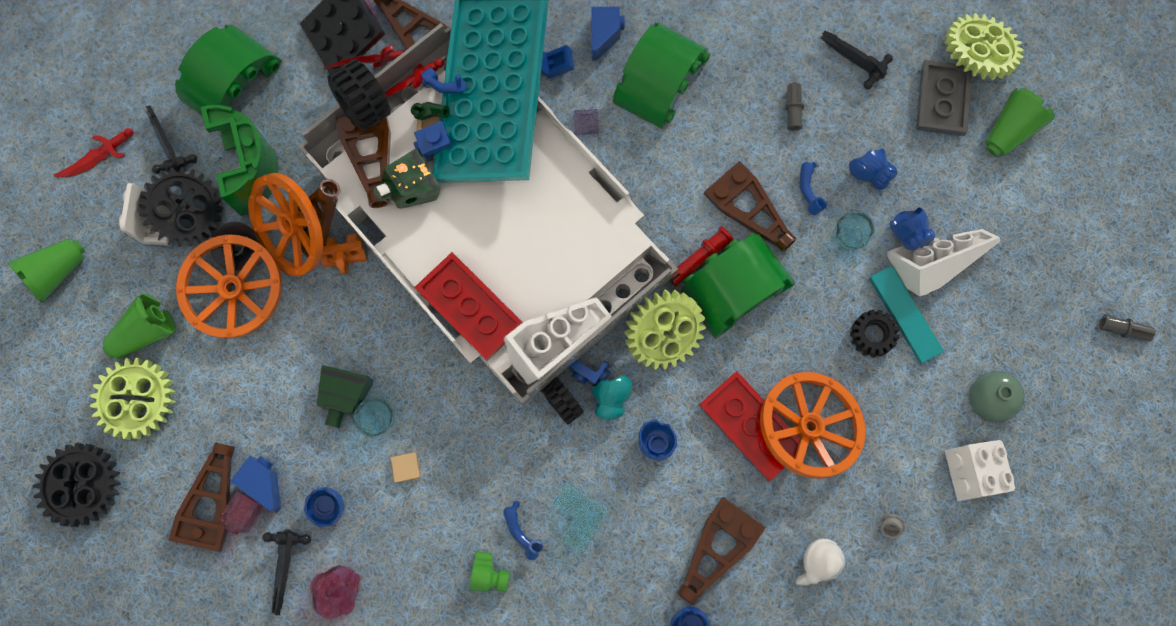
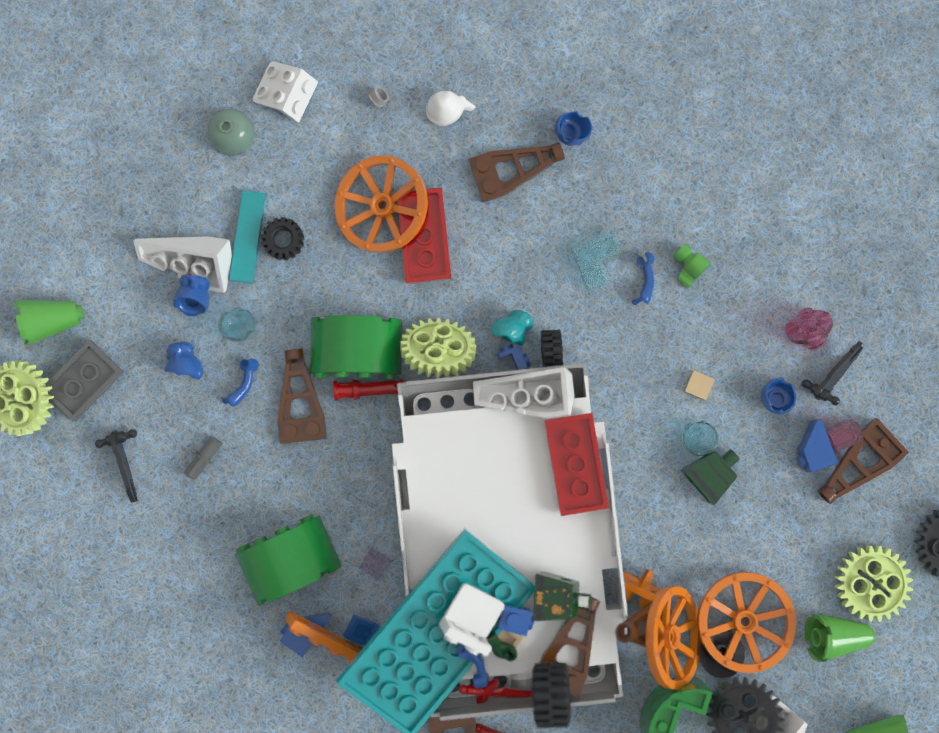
camera: 150 degrees left, 10 degrees up
(470, 109) = (471, 619): none -> white bracket
(585, 30) = (319, 636): none -> orange plate
(657, 440) = (501, 273): blue hair -> none
(1127, 328) = (95, 112): dark grey axle -> none

